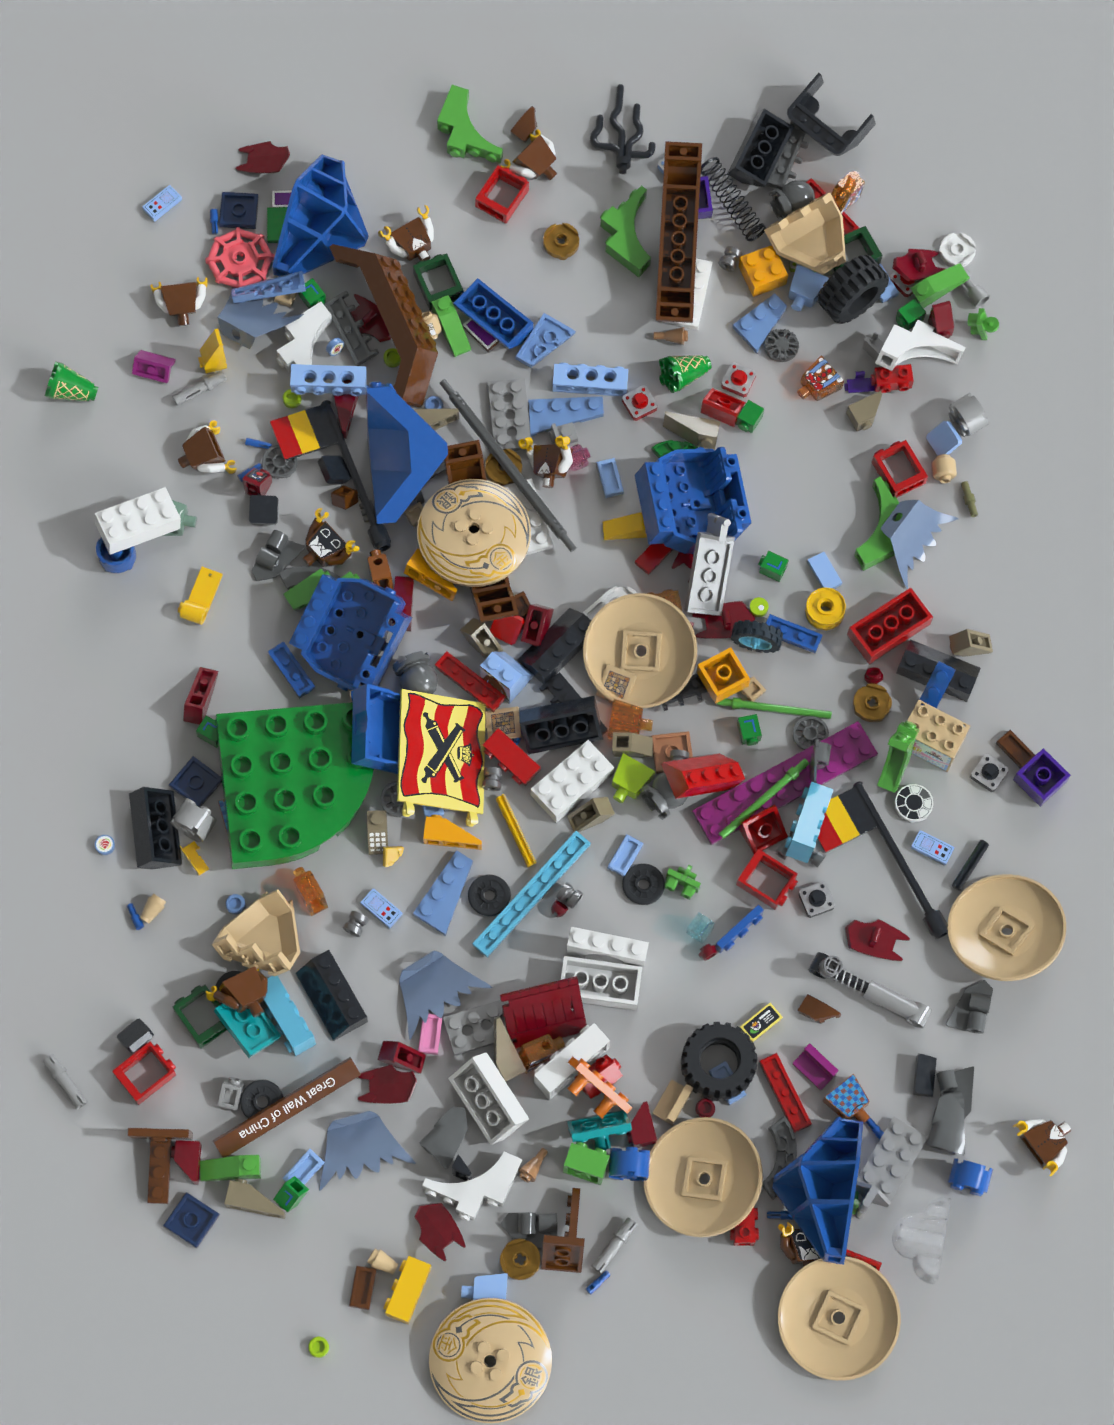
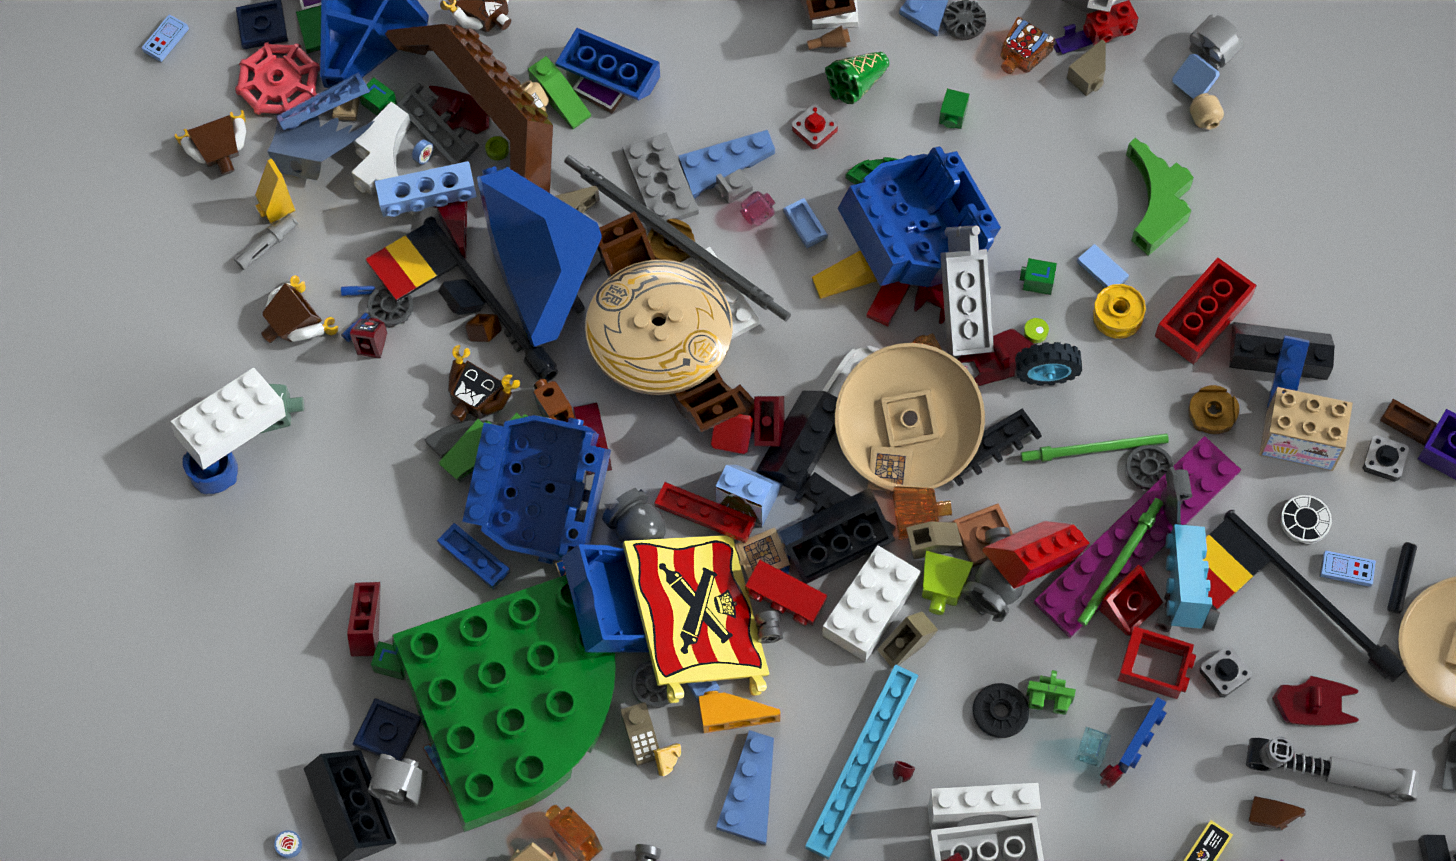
camera: 10 degrees left, 5 degrees down
(69, 385) = (101, 277): green cone -> none
(153, 366) = (201, 230): magenta panel -> none
(196, 860) = (413, 833): yellow piece -> none
(201, 596) = (334, 494): yellow door -> none
(214, 220) = (234, 43): blue pin -> none
(263, 509) = (385, 367): black piece -> none
(275, 556) = (415, 420): dark grey panel -> none
(291, 399) = (385, 227): lime tile -> none
(381, 908) = (673, 831): light blue tile -> none
(413, 513) = (576, 326): tan tile -> none
(421, 572) = (607, 393): light orange slope -> none
(433, 403) = (562, 187): medium blue tile -> none
(437, 261) = (516, 27): dark green window -> none
(480, 637) = (702, 454): dark tan slope -> none
(491, 883) = (807, 761): black wheel -> none
(517, 835) = (817, 685): yellow axle -> none
(543, 340) = (676, 82): medium blue wing -> none
(549, 460) = (726, 218): torso -> none
(569, 895) = (911, 749): flat silver wheel -> none
(581, 385) = (738, 122): light blue brick -> none
(625, 855) = (966, 680): light blue tile -> none
(693, 429) = (889, 140): dark tan slope -> none
(722, 407) = (916, 107): red slope -> none
(723, 675) = (1022, 421): light orange brick -> none
(738, 379) = (926, 71): piece -> none
(749, 729) = (1073, 481): green brick -> none
(754, 690) = (1060, 432): tan tile -> none
(796, 634) = (1096, 351): blue plate -> none
(873, 675) = (1204, 376): dark red plate -> none
(898, 756) = (1274, 463): bright green arch -> none
(907, 485) = (1130, 129): red window -> none
(912, 532) = (1196, 192): piece -> none
(969, 499) = (1248, 139): olive bar -> none
(970, 643) = (1308, 307): dark tan slope -> none

